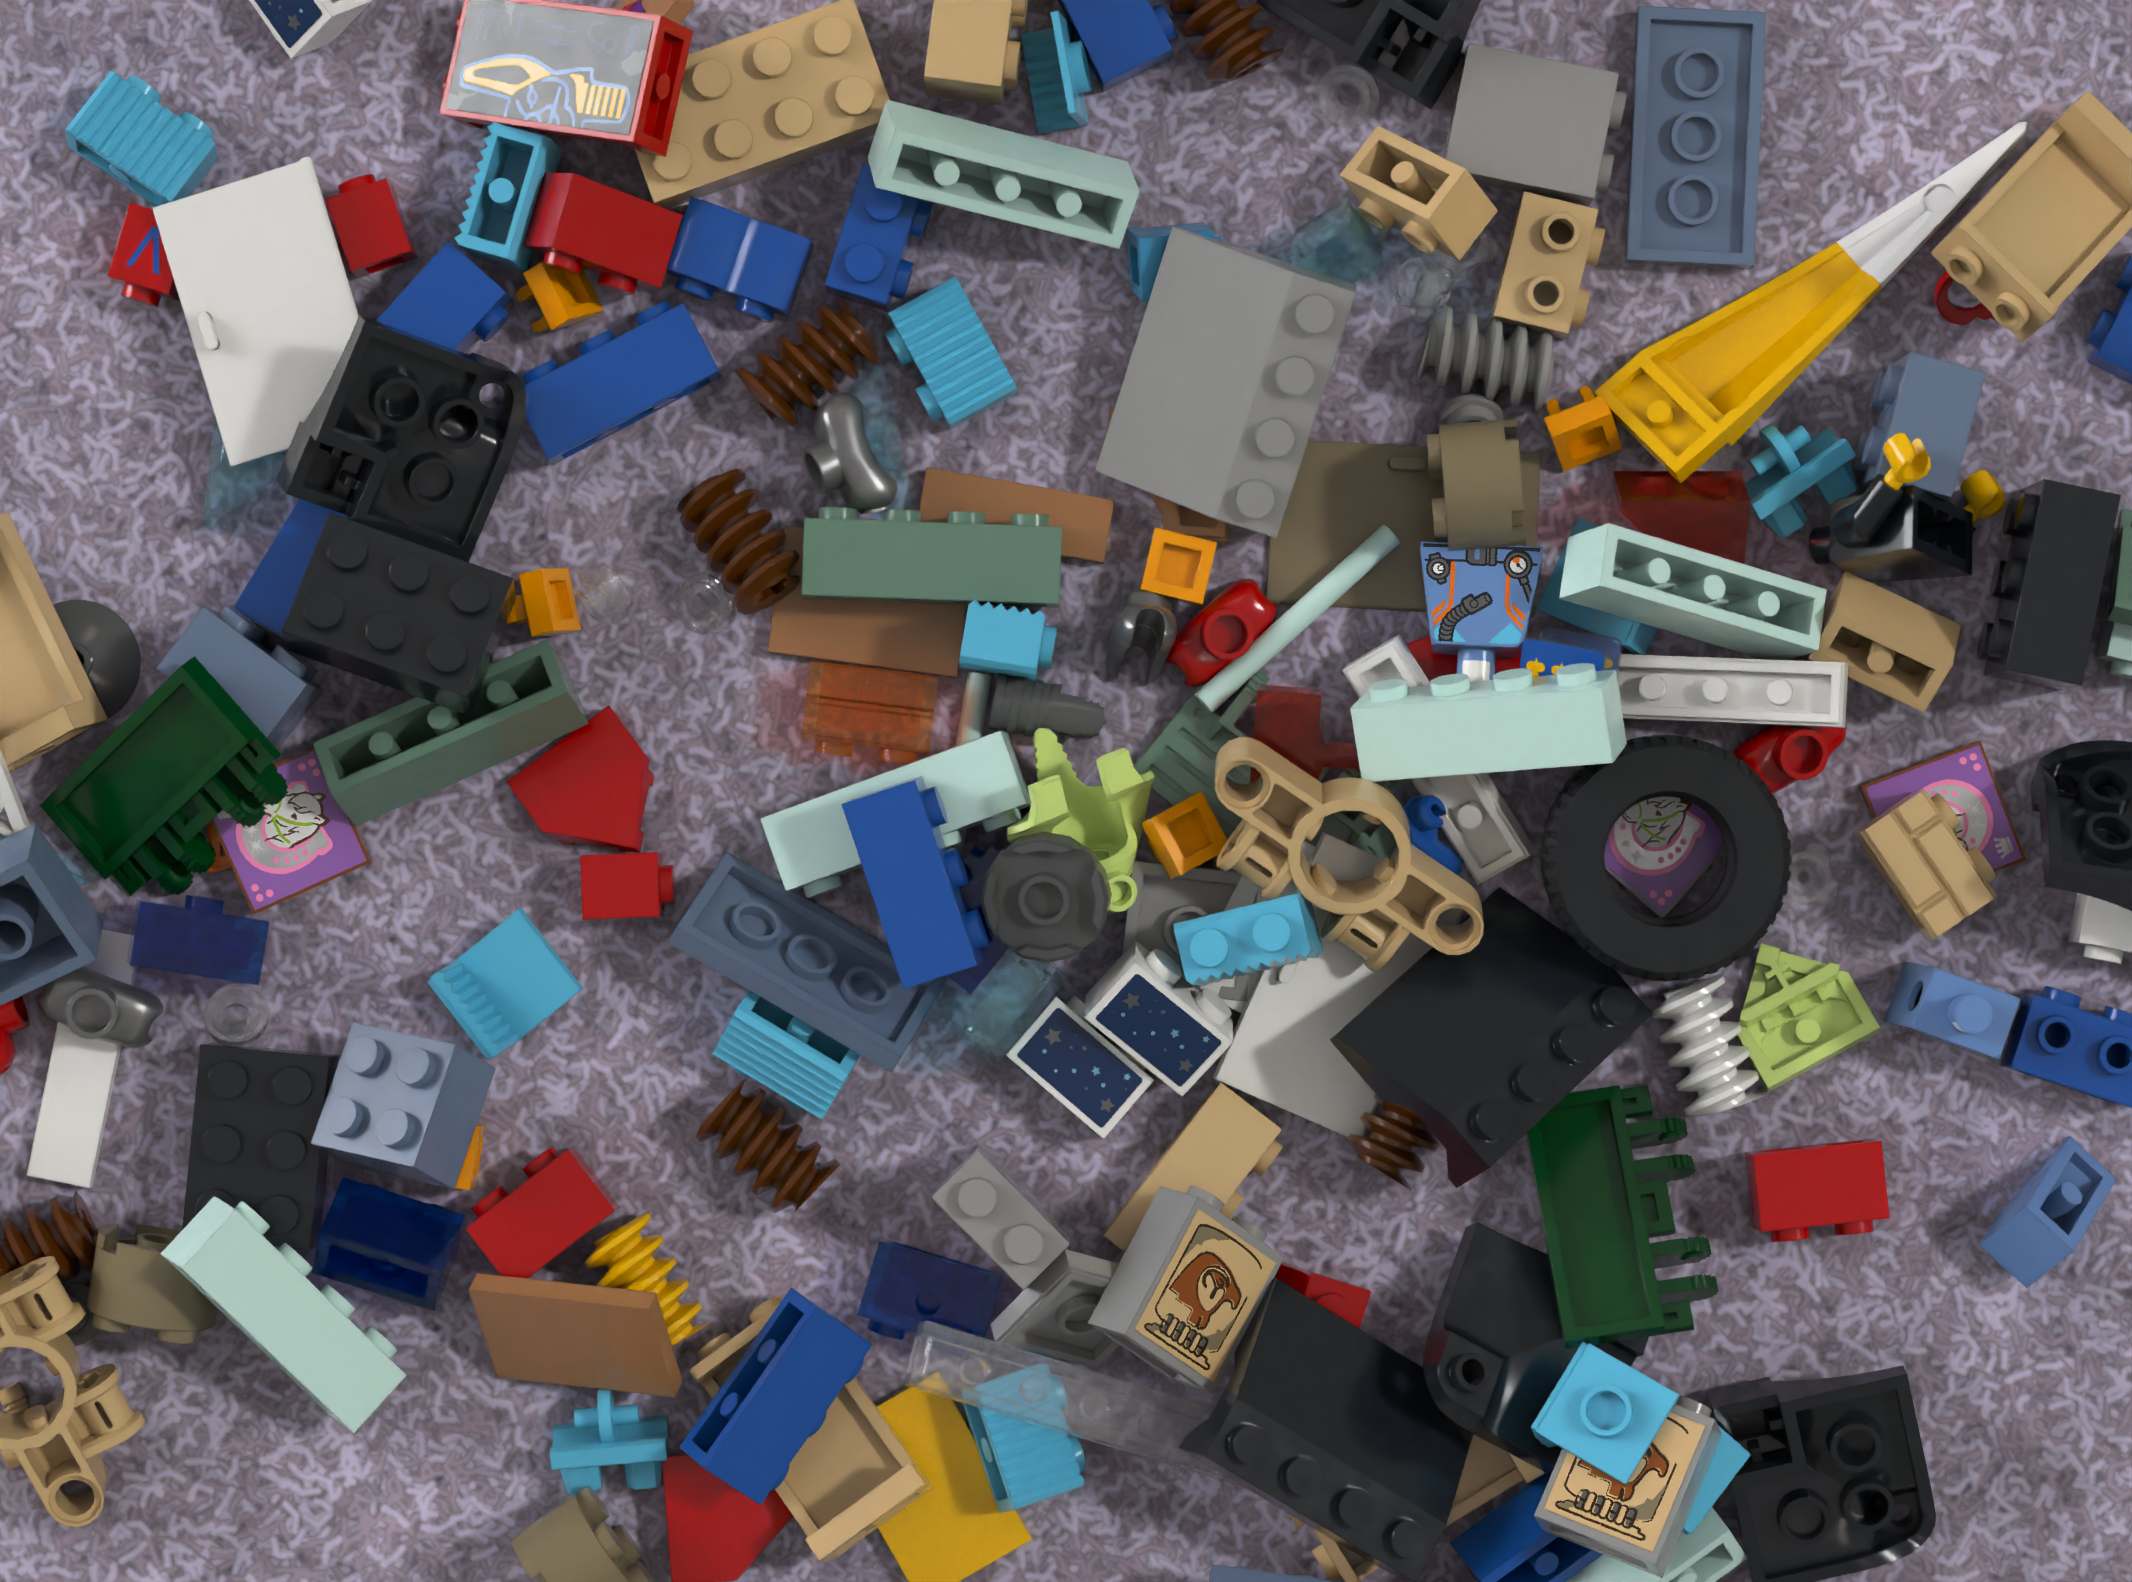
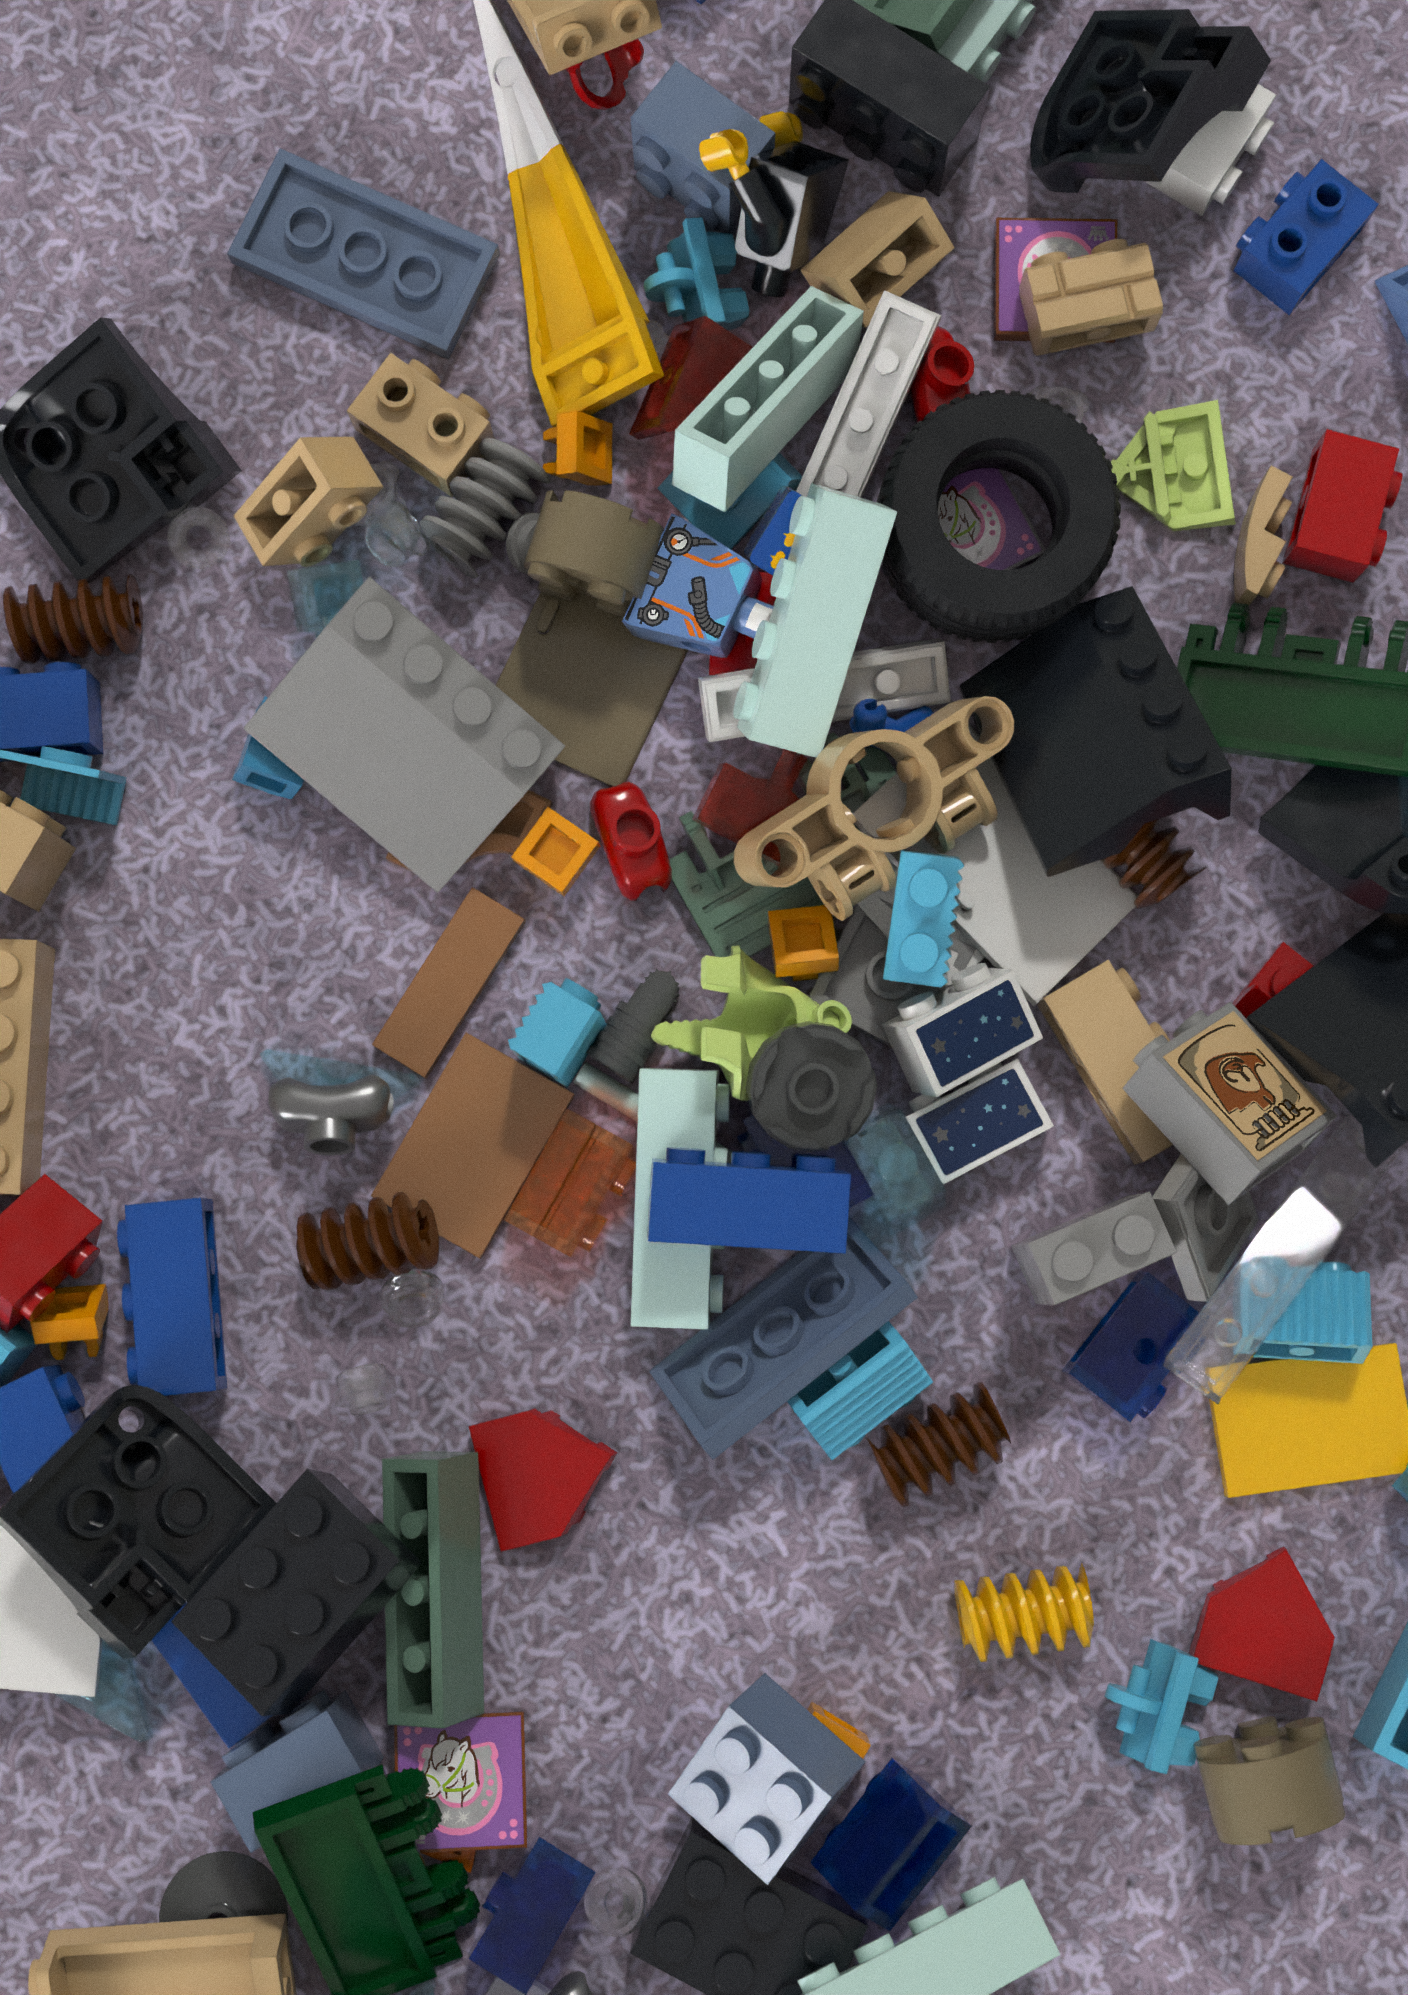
camera: 60 degrees left, 5 degrees down
(505, 985) = (689, 1631): medium azure piece -> none
(542, 1215) = (921, 1684): red brick -> none
(546, 603) = (349, 1447): light orange tile -> none
(576, 1334) = (1048, 1699): medium nougat tile -> none
(625, 885) = (642, 1478): red brick -> none
(738, 259) = (110, 1139): blue brick -> none
(776, 1397) = (1181, 1531): blue brick -> none
(809, 363) = (231, 1113): reddish brown piece -> none
(845, 1474) = (1216, 1508): tan panel -> none
(874, 243) = (141, 1005): blue brick -> none
(931, 560) = (457, 1072): sand green brick -> none
(951, 354) = (277, 981): medium azure brick -> none
(1002, 174) = (130, 864): light aqua brick -> none
(1146, 623) = (596, 901): flat silver piece -> none
(1297, 618) = (646, 764): light aqua bar -> none
(1534, 124) = (288, 379): light grey brick -> none
(1706, 1047) = (1179, 554): white piece -> none
(1729, 1128) = (1257, 546): none -> tan slope
(1952, 1010) = (1235, 320): medium blue torso -> none

